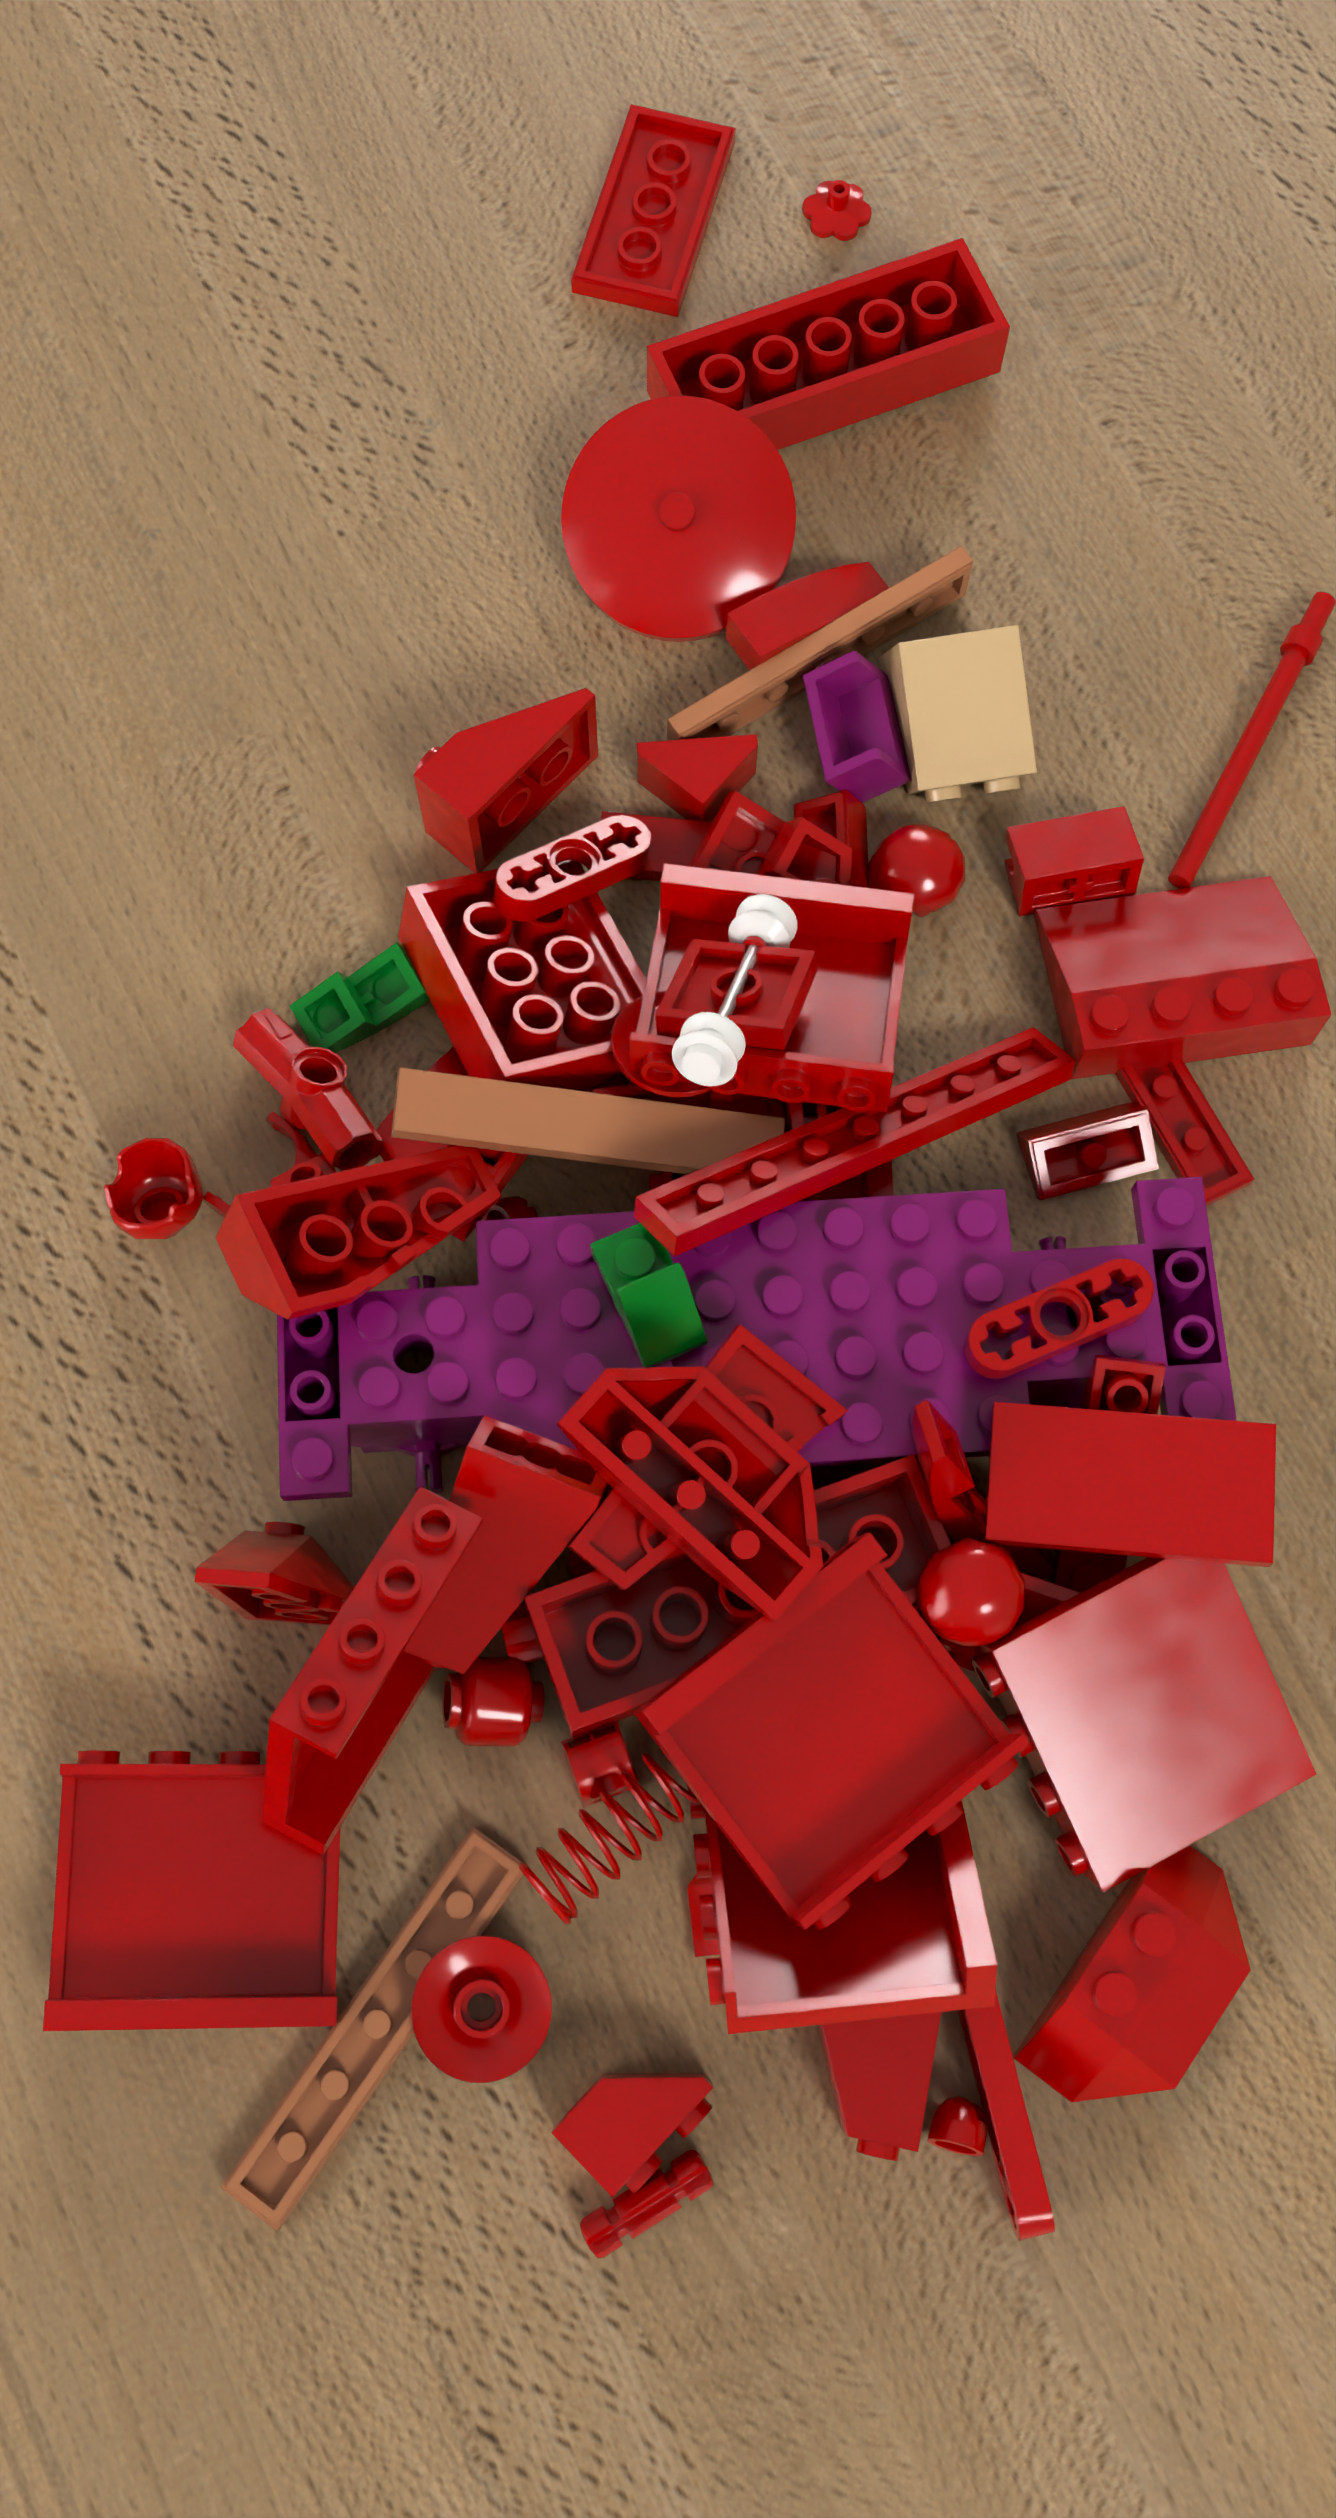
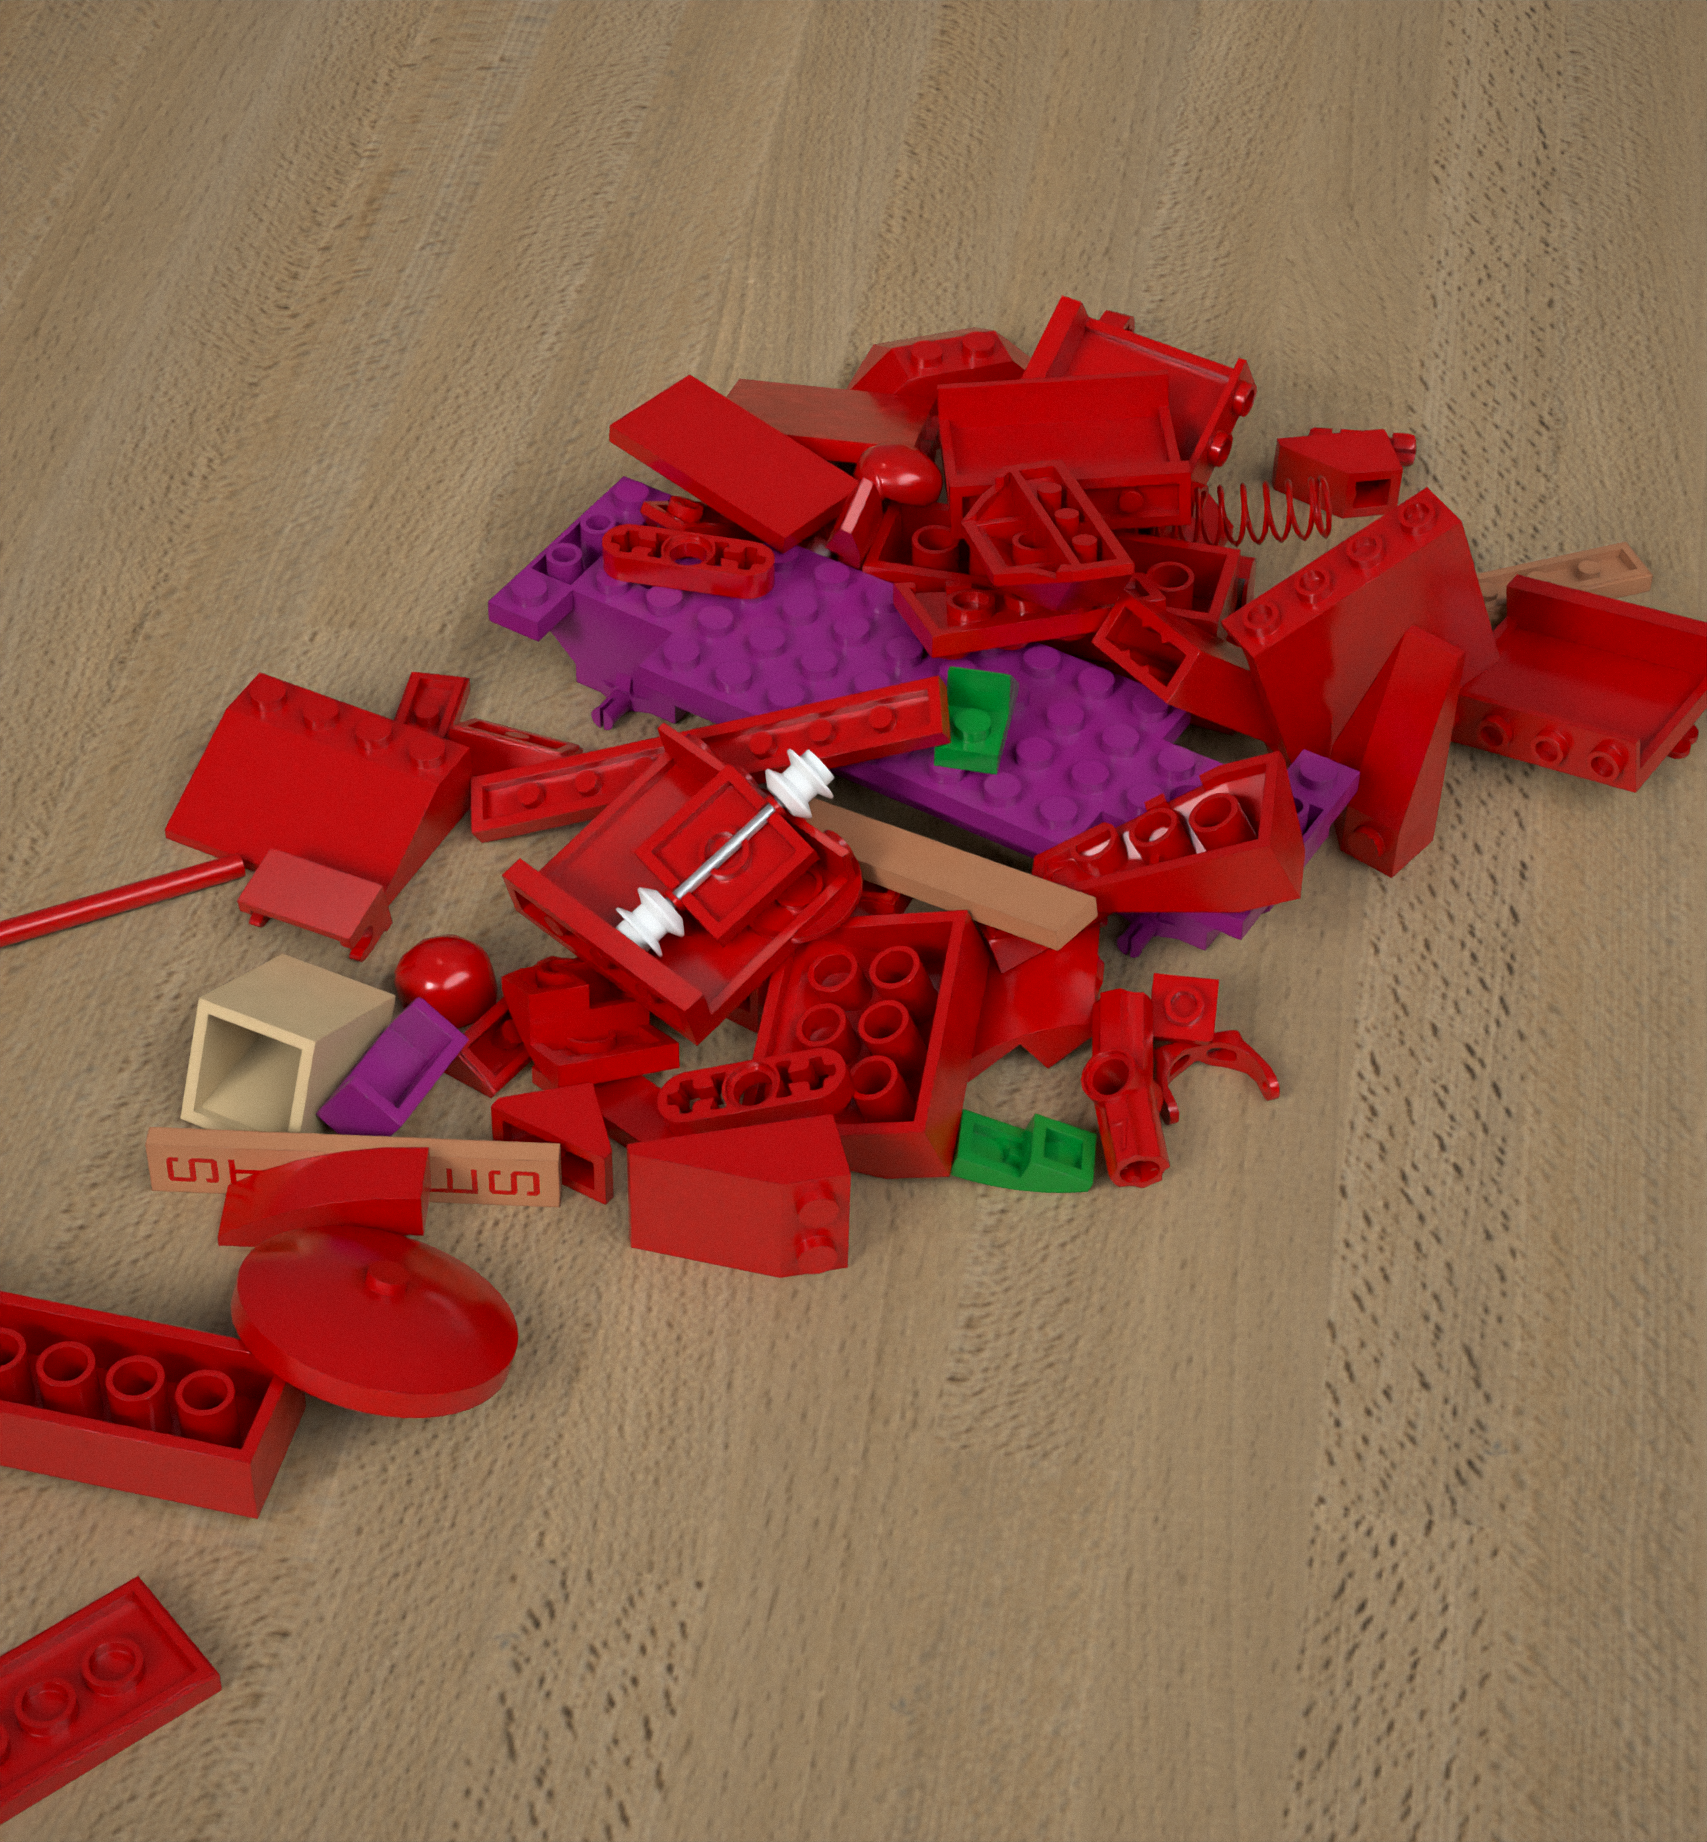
camera: 145 degrees left, 30 degrees down
(154, 1189) = (1320, 1094): red hair -> none

